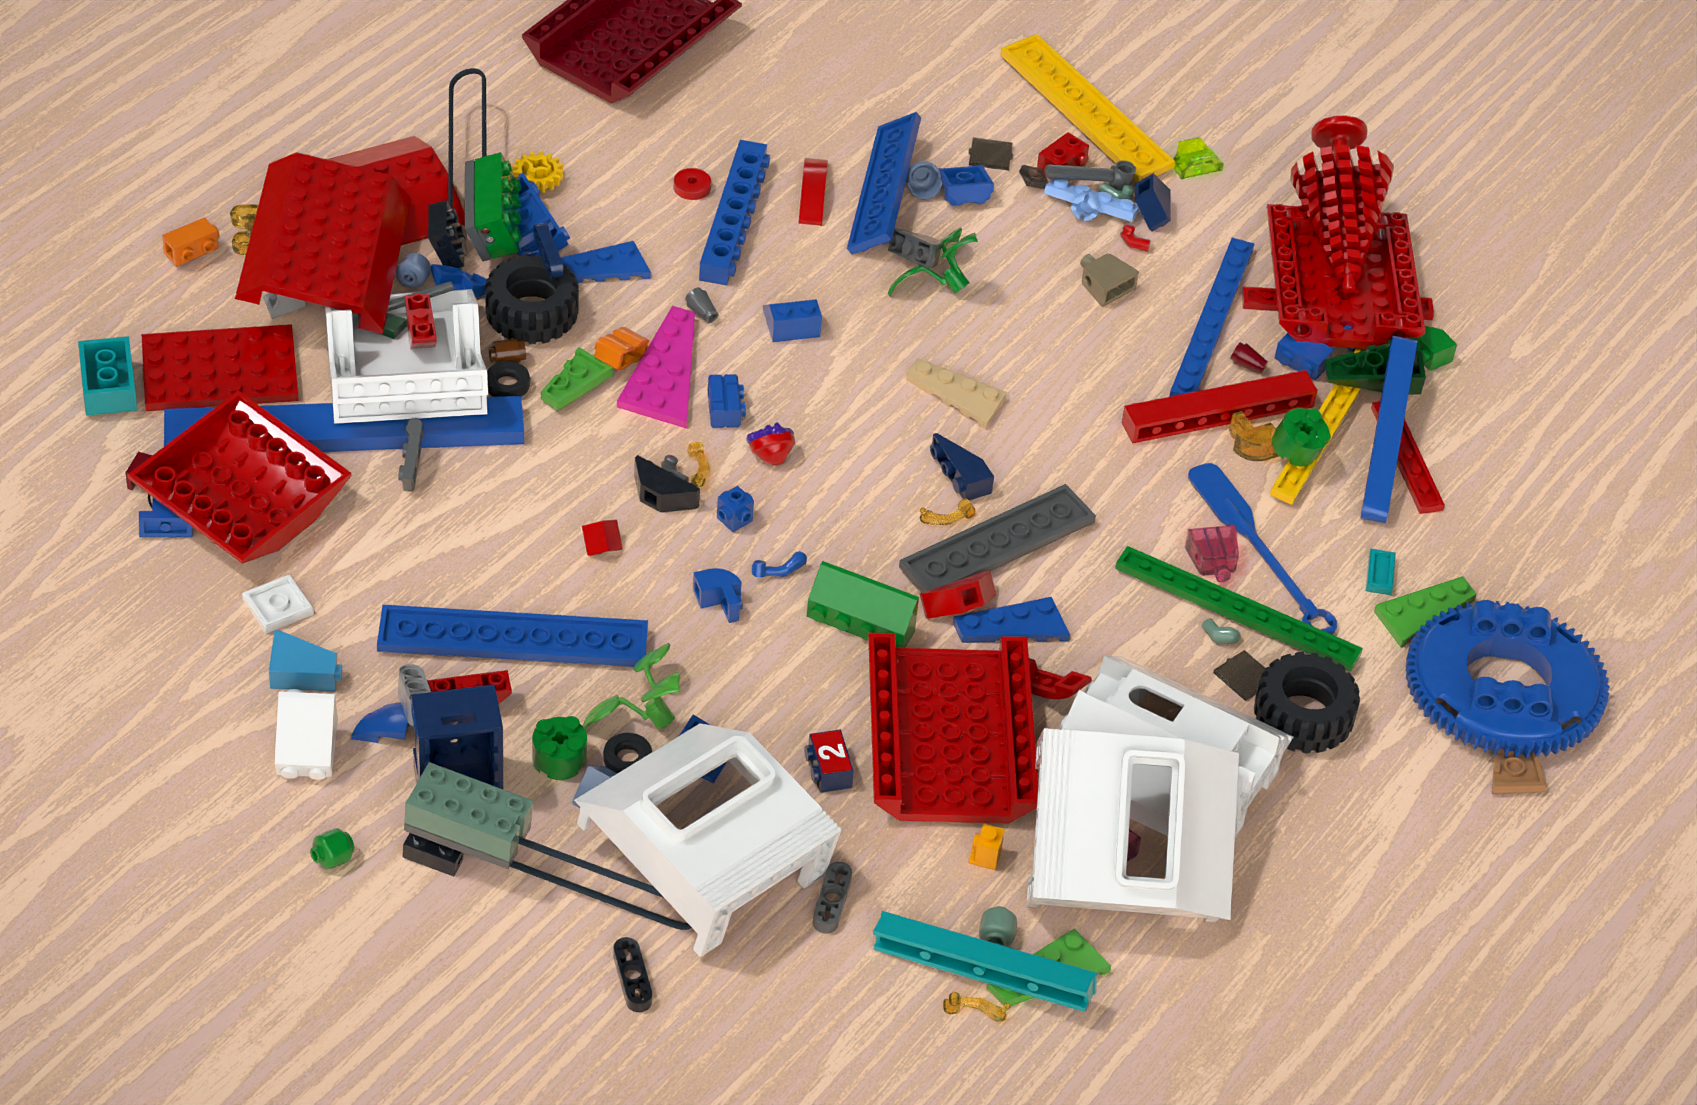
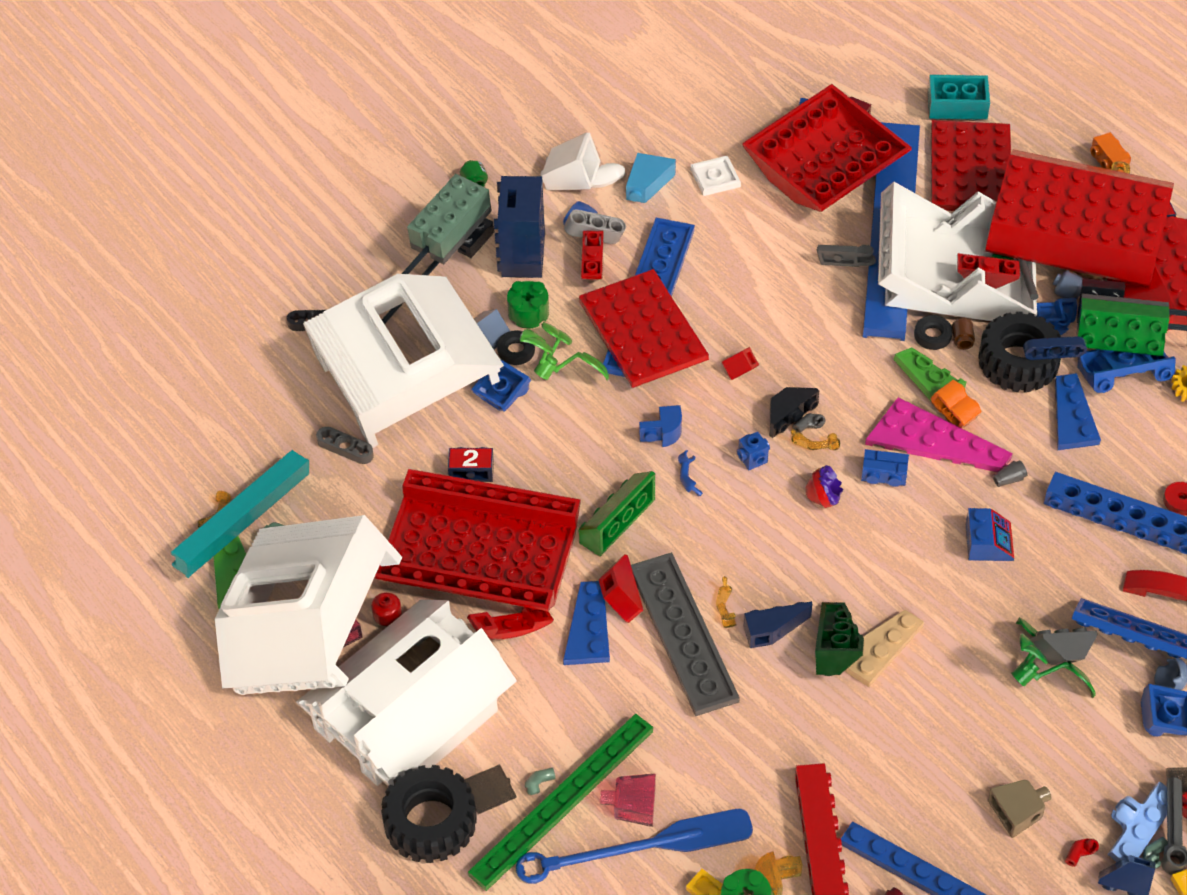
camera: 110 degrees right, 5 degrees up
(574, 627) = (643, 328): none -> red plate
(976, 411) = (837, 640): none -> dark green wedge

